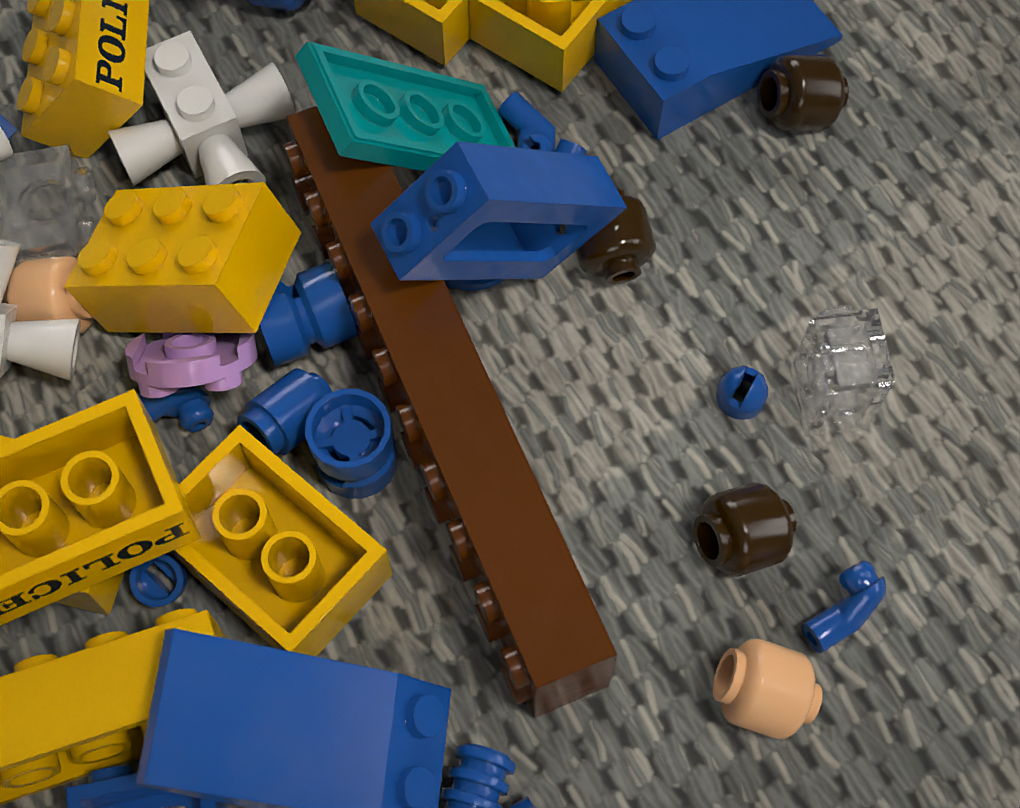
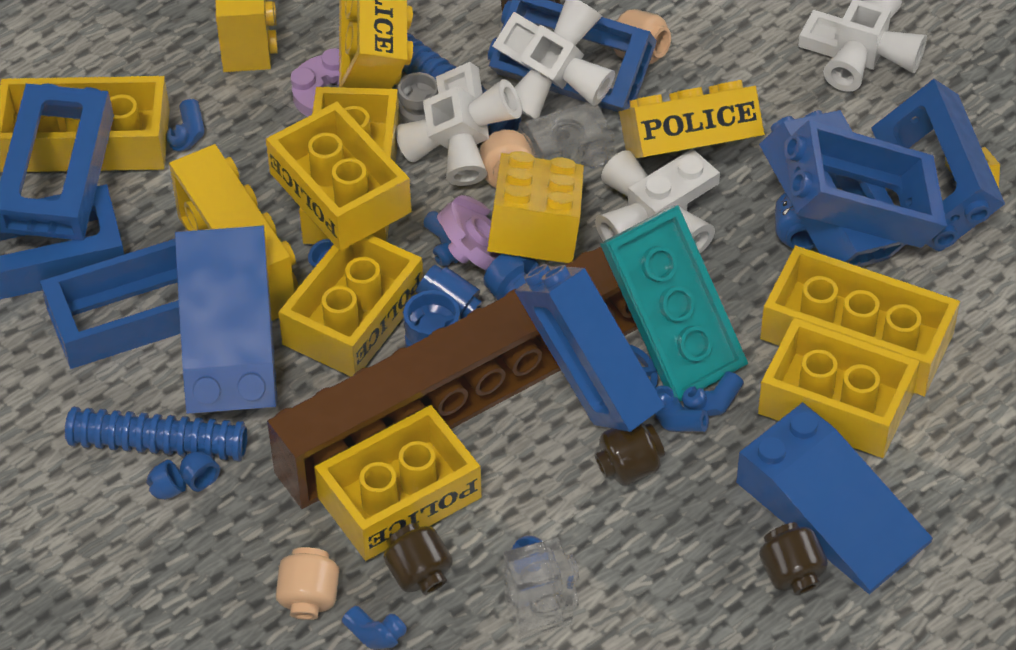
camera: 80 degrees right, 15 degrees down
(630, 527) = (398, 479): none -> yellow brick

